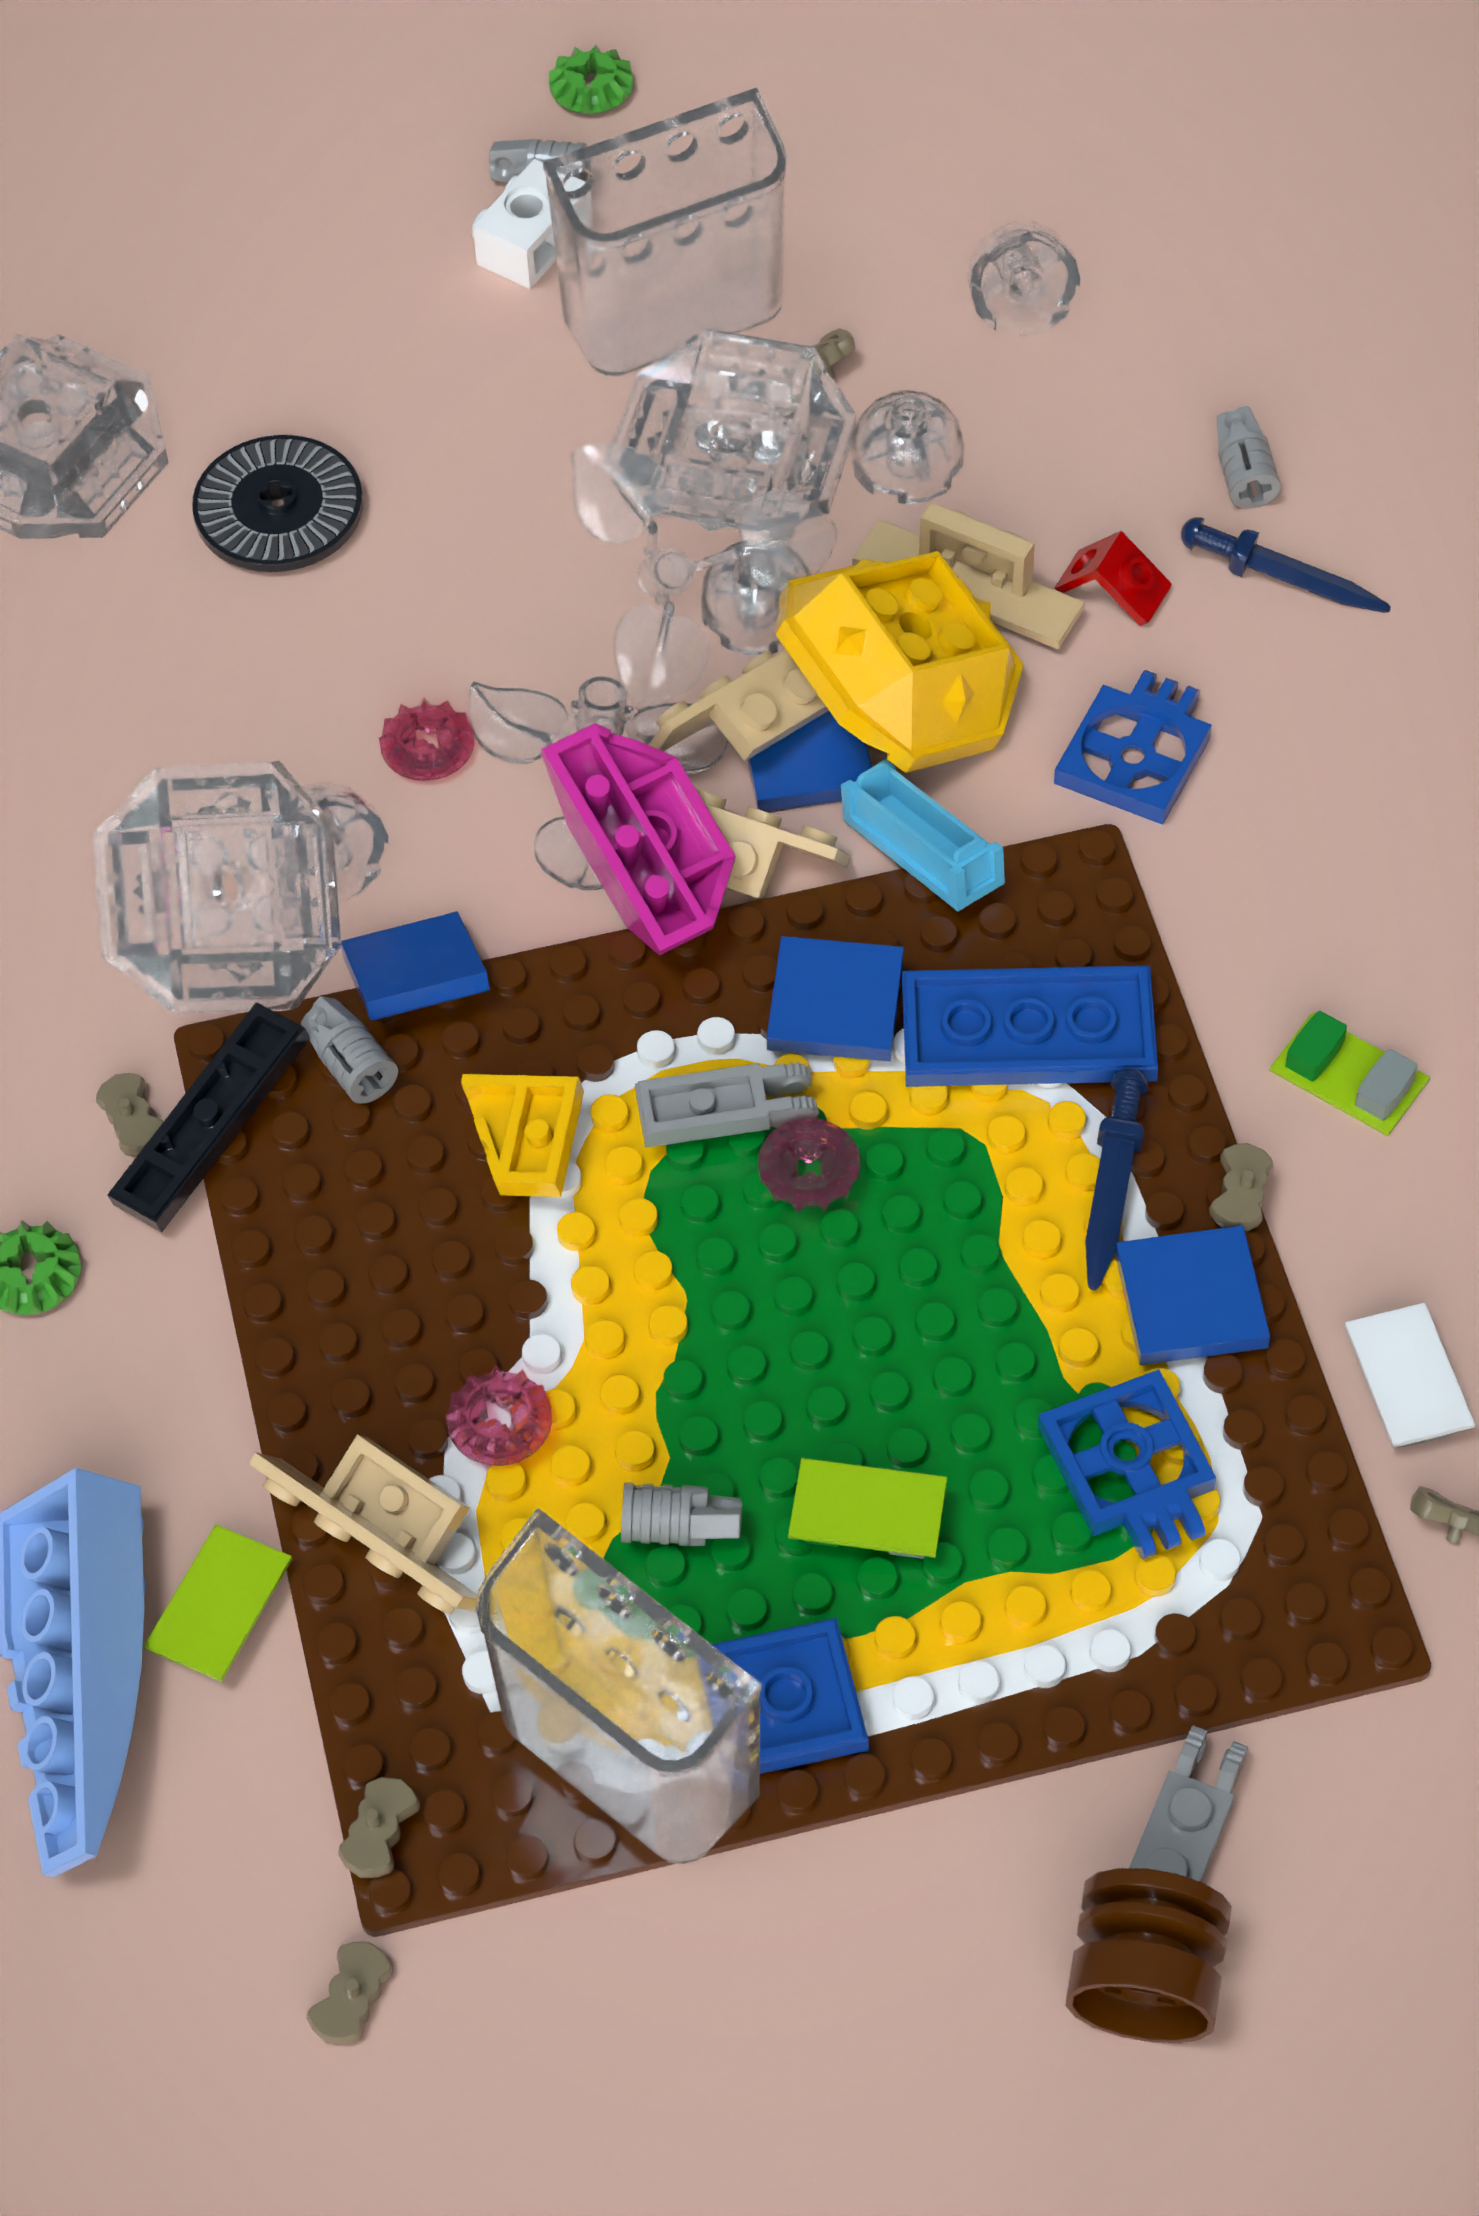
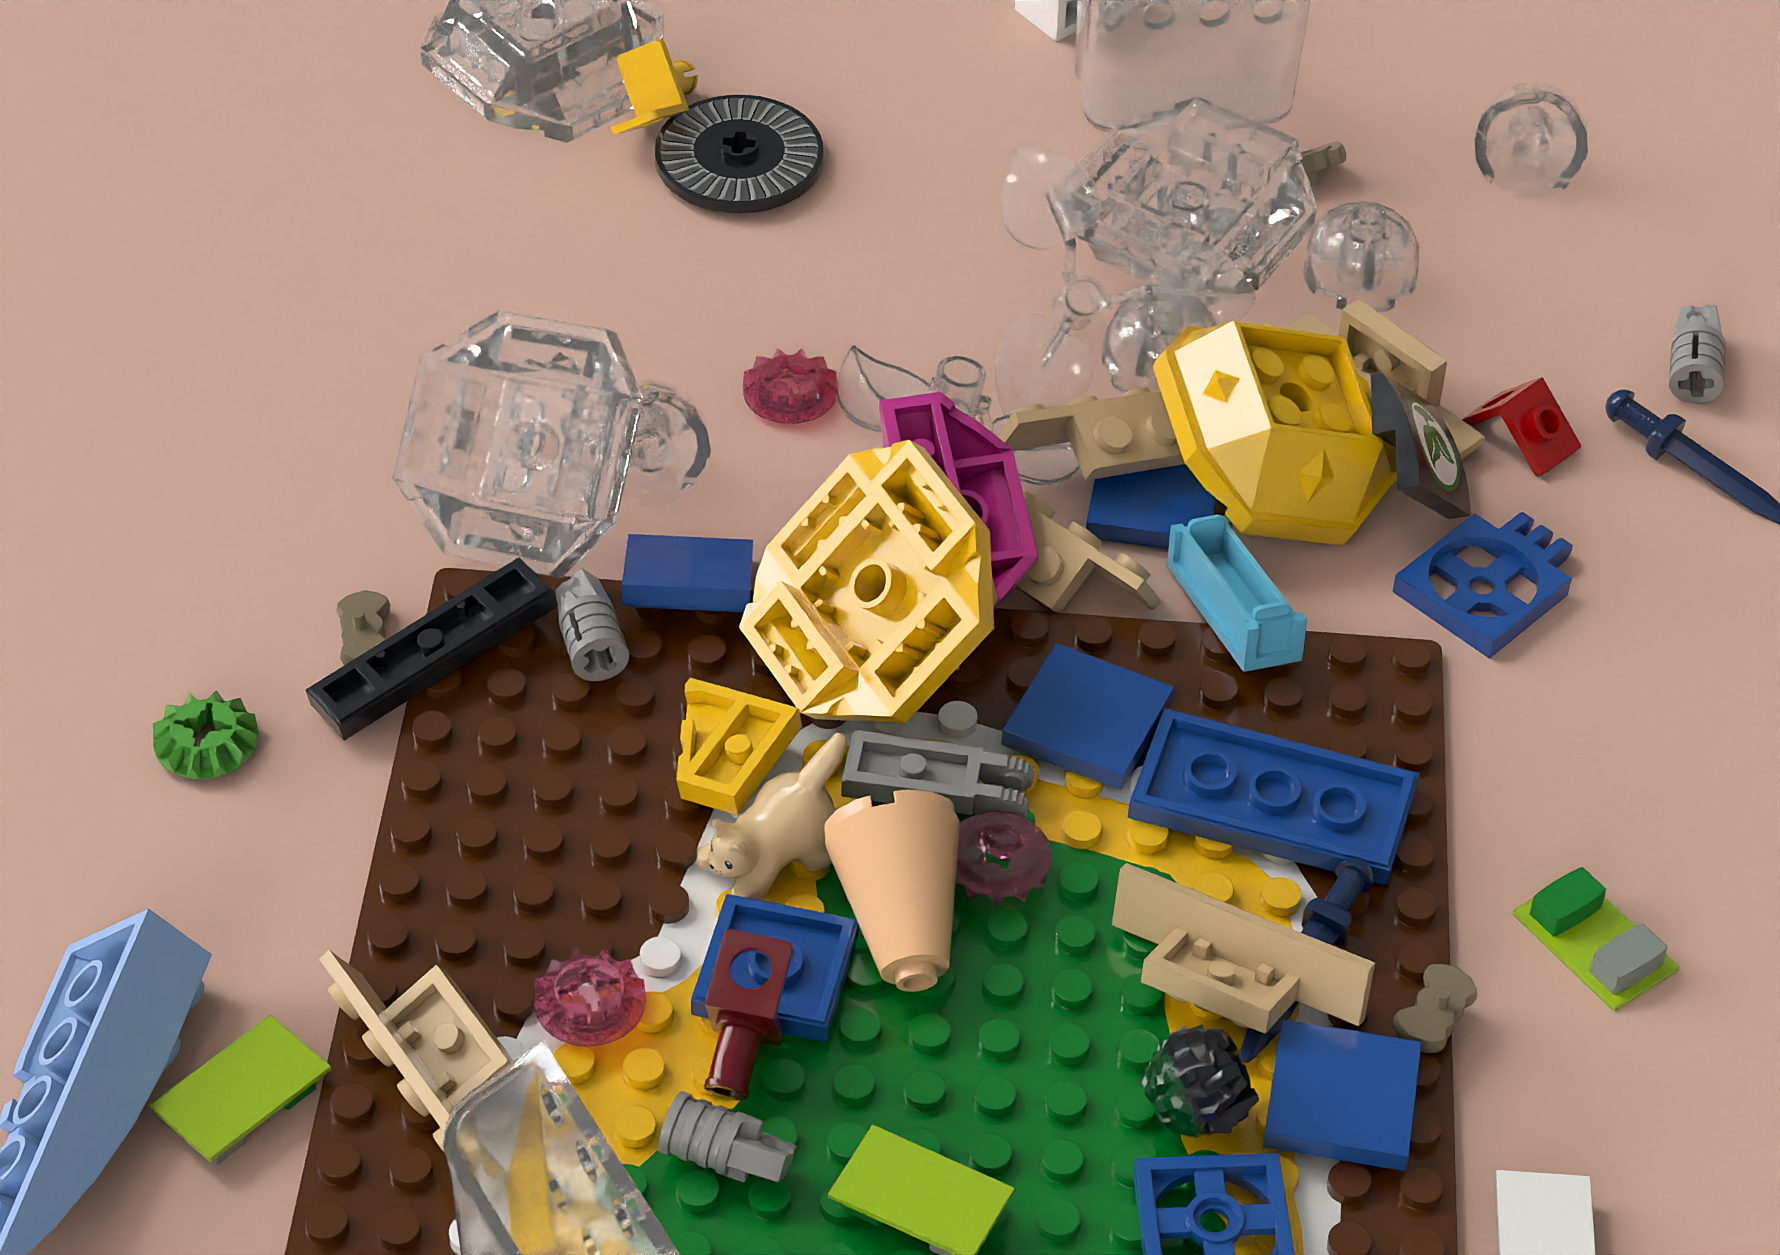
camera: 15 degrees right, 10 degrees down
(171, 458) = (654, 85): none -> yellow bracket
(557, 952) = (873, 589): none -> yellow piece
(609, 1192) = (778, 827): none -> tan animal
(652, 1333) = (817, 970): none -> blue tile
(652, 1394) = (743, 1014): none -> dark red bracket
(739, 1222) = (900, 880): none -> light nougat cone
(1050, 646) = (1425, 449): none -> black slope
(1055, 1200) = (1235, 958): none -> tan bracket
(1069, 1328) = (1198, 1083): none -> black piece

